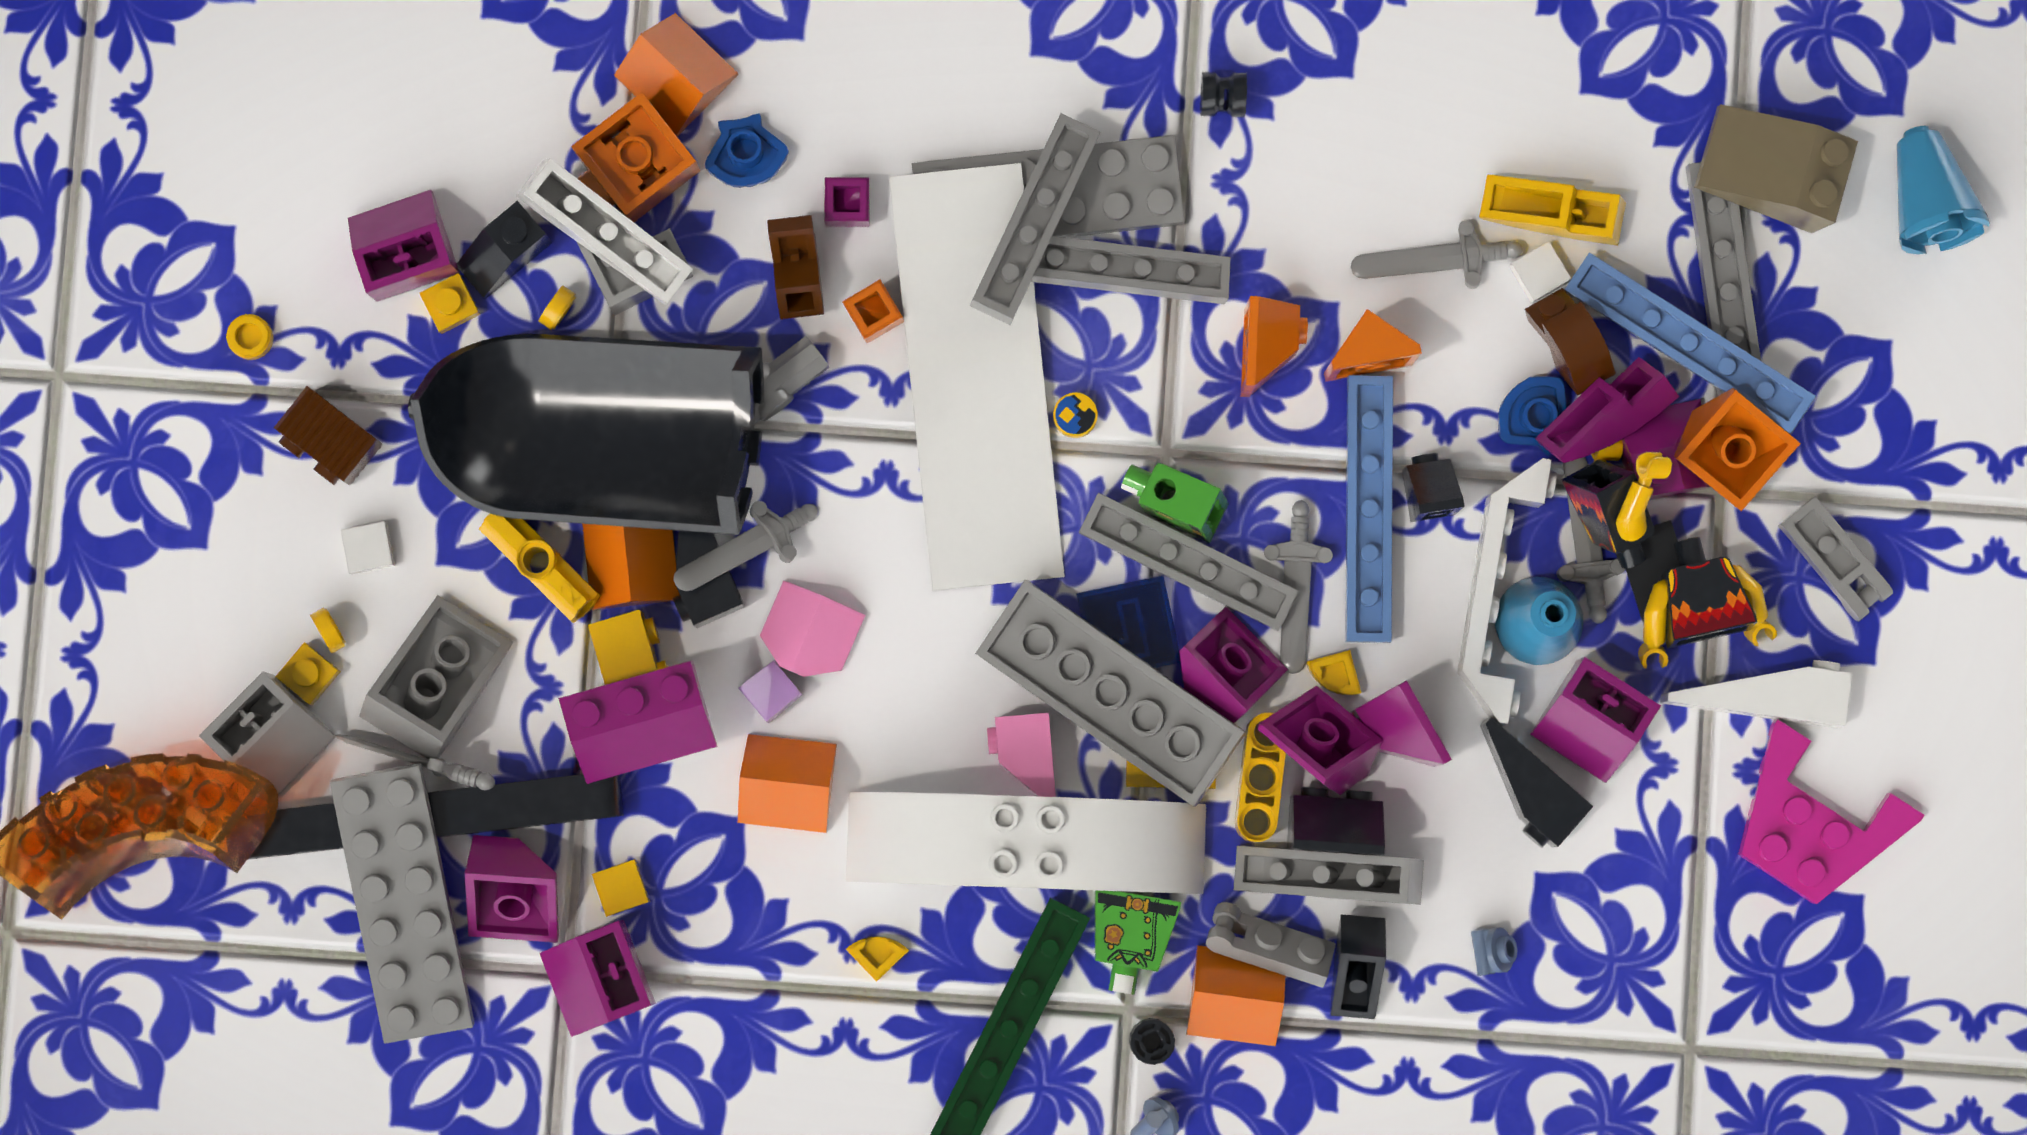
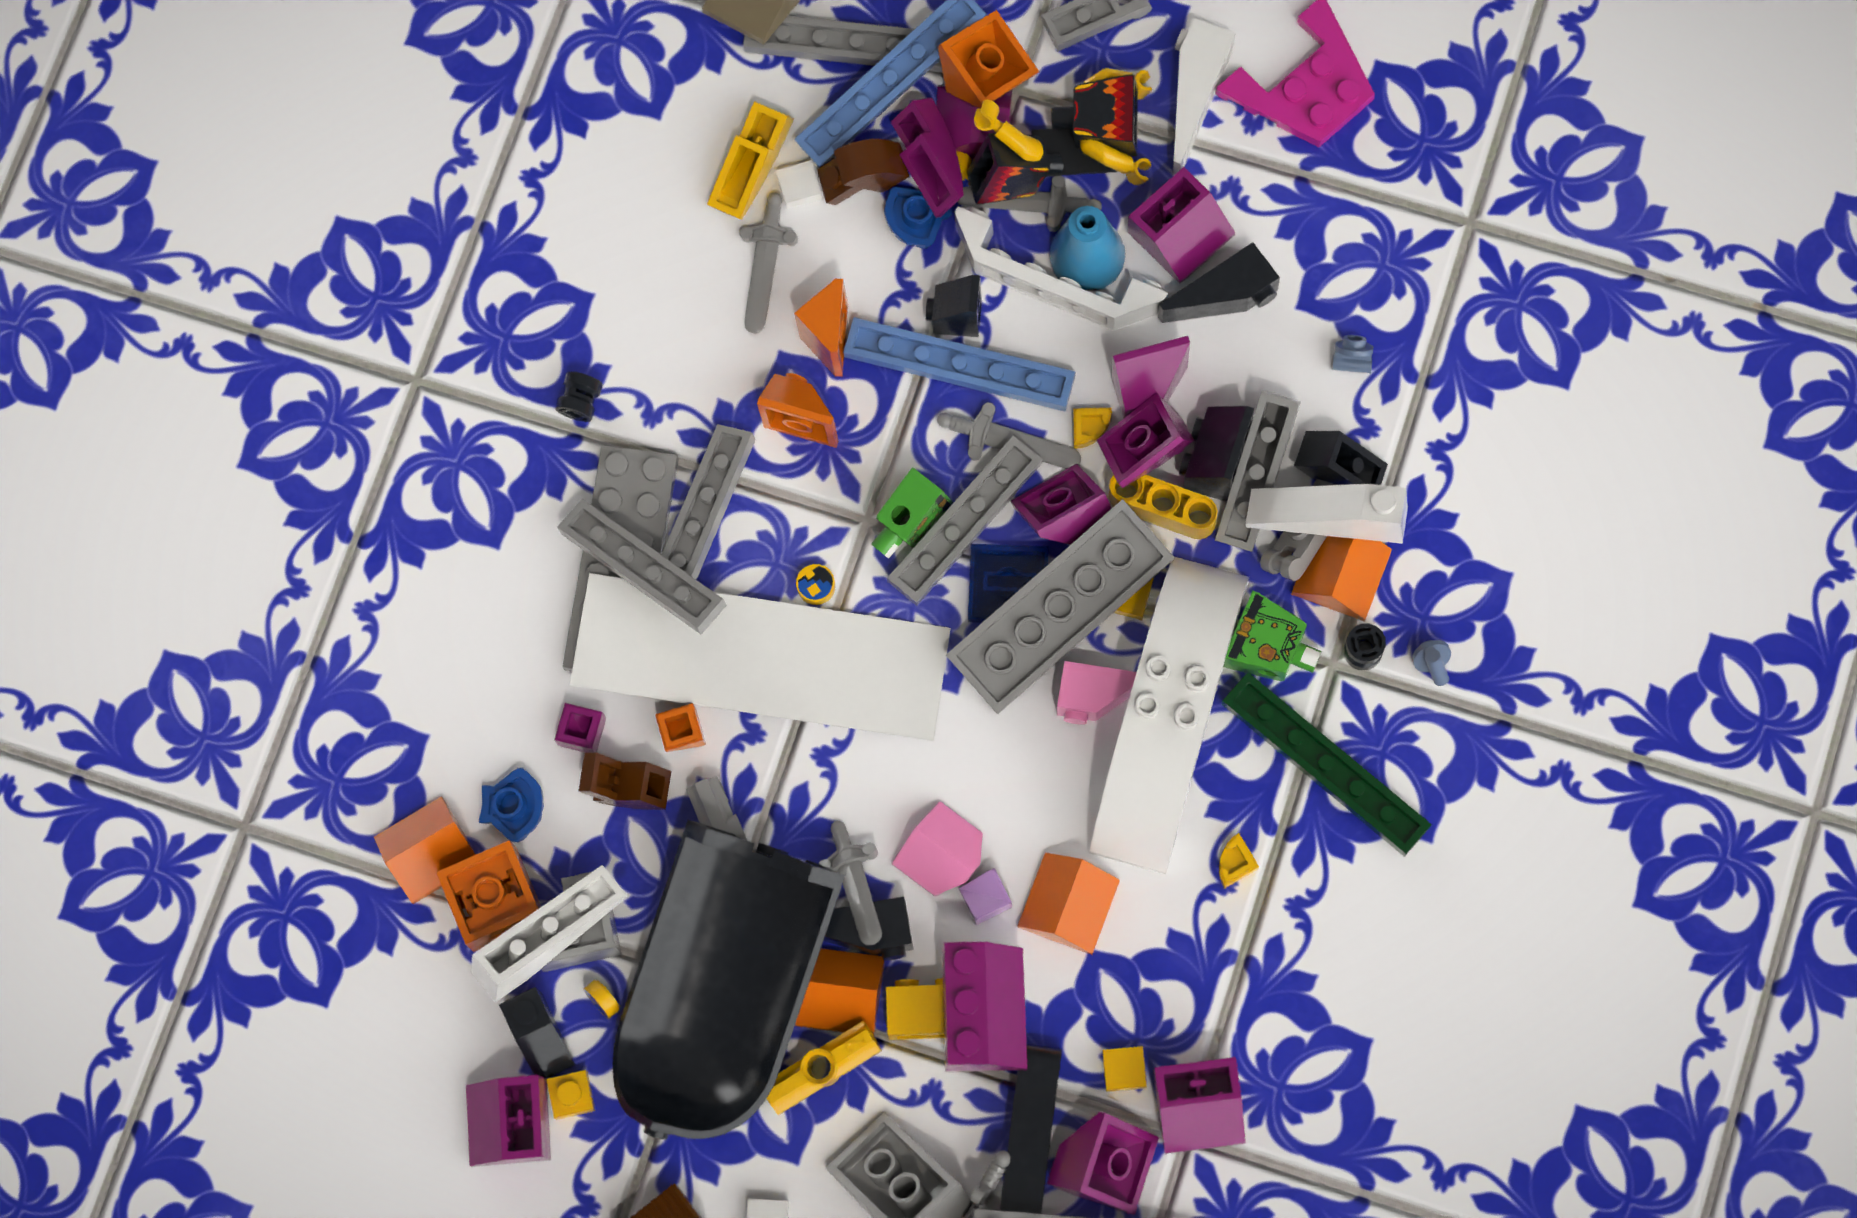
camera: 65 degrees left, 10 degrees down
(1289, 967) = (1332, 510): none -> white slope

